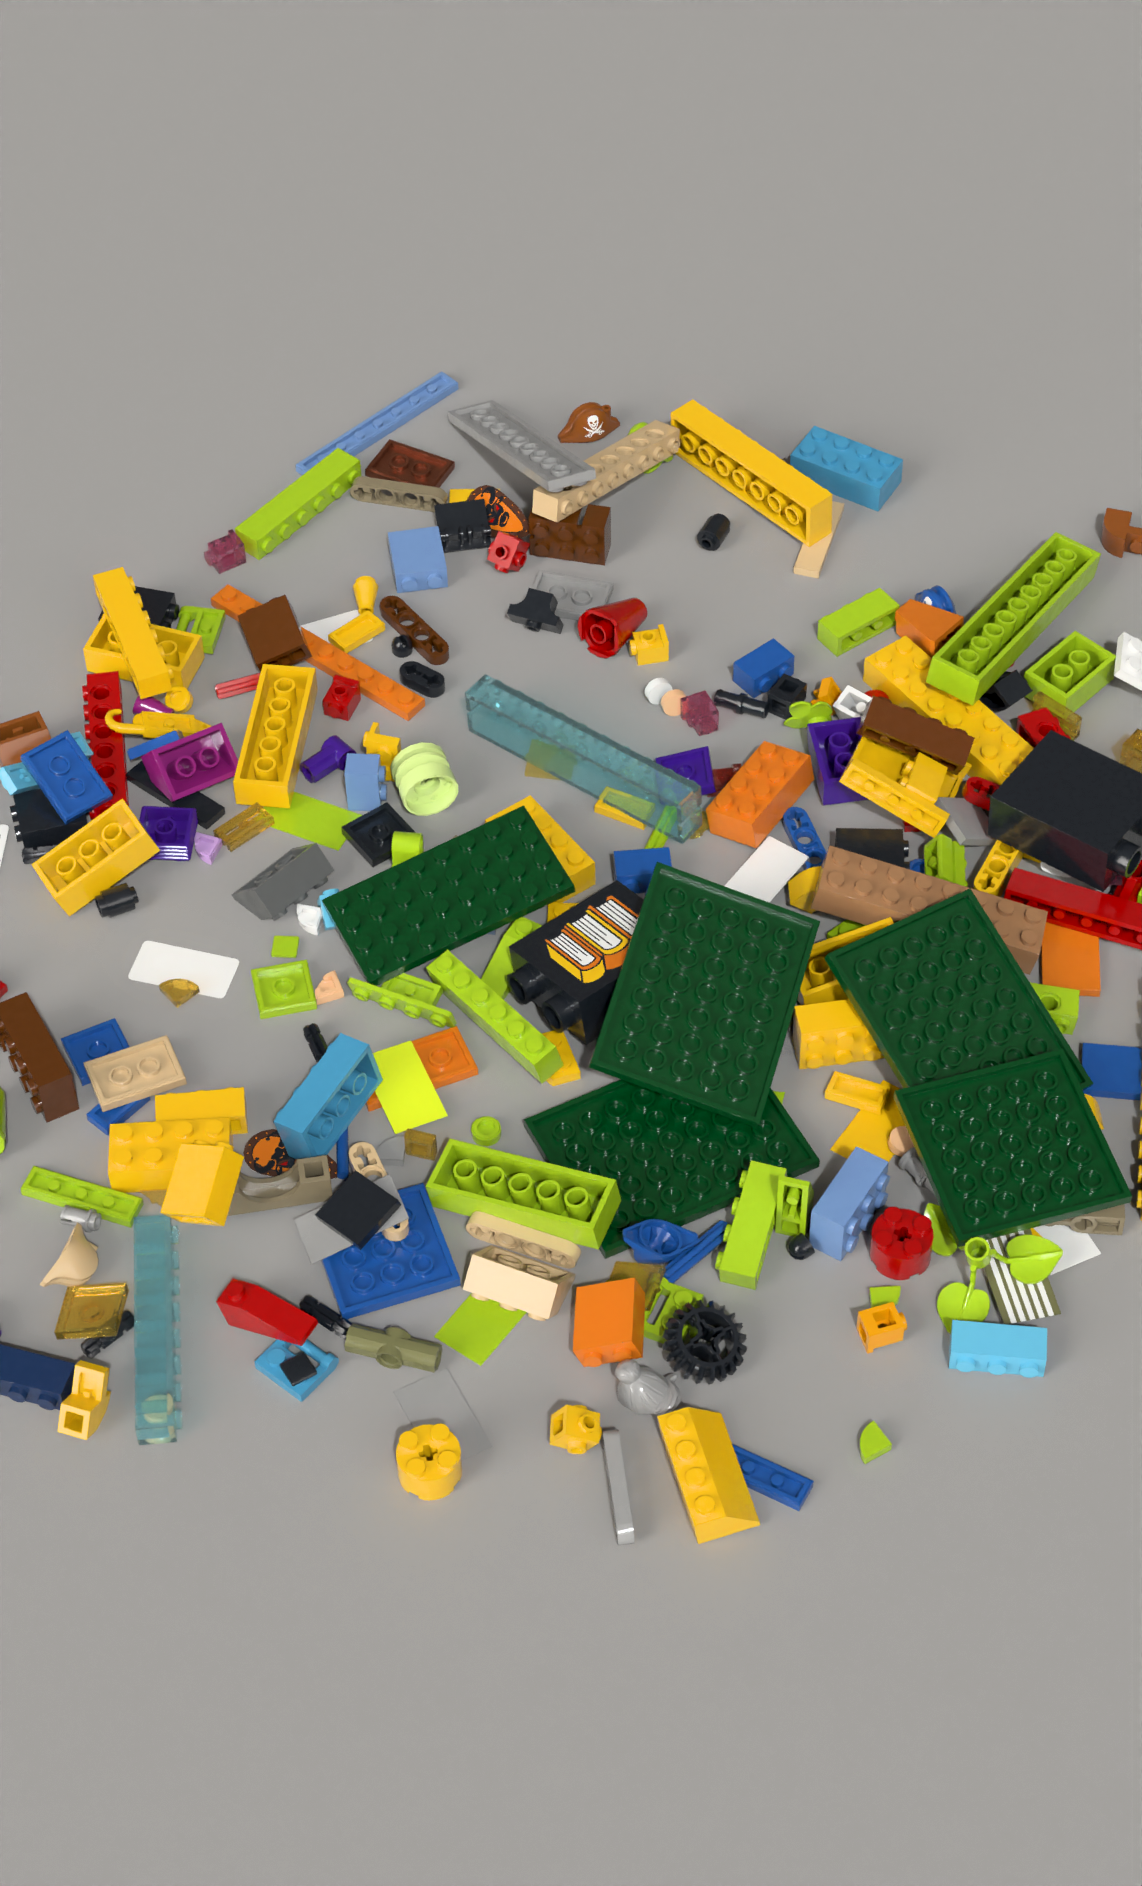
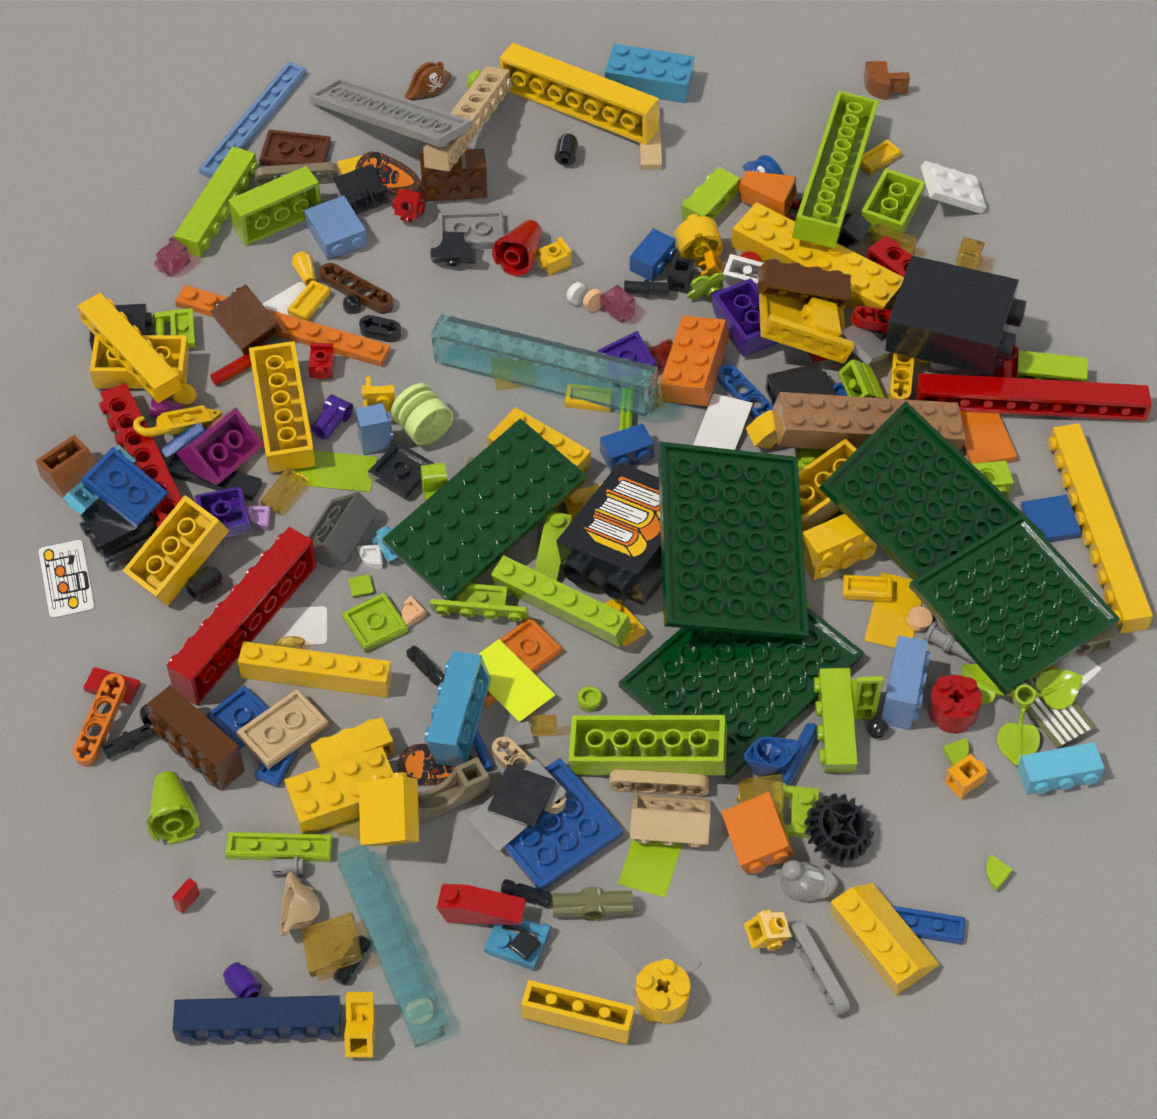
camera: 20 degrees left, 5 degrees up
(139, 943) = (242, 615): none -> red brick
(196, 1021) = (315, 669): none -> yellow brick
(325, 1455) = (577, 1012): none -> yellow brick
(356, 520) = (274, 205): none -> lime brick
(819, 658) = (697, 237): none -> yellow brick
(1082, 619) = (879, 157): none -> yellow tile

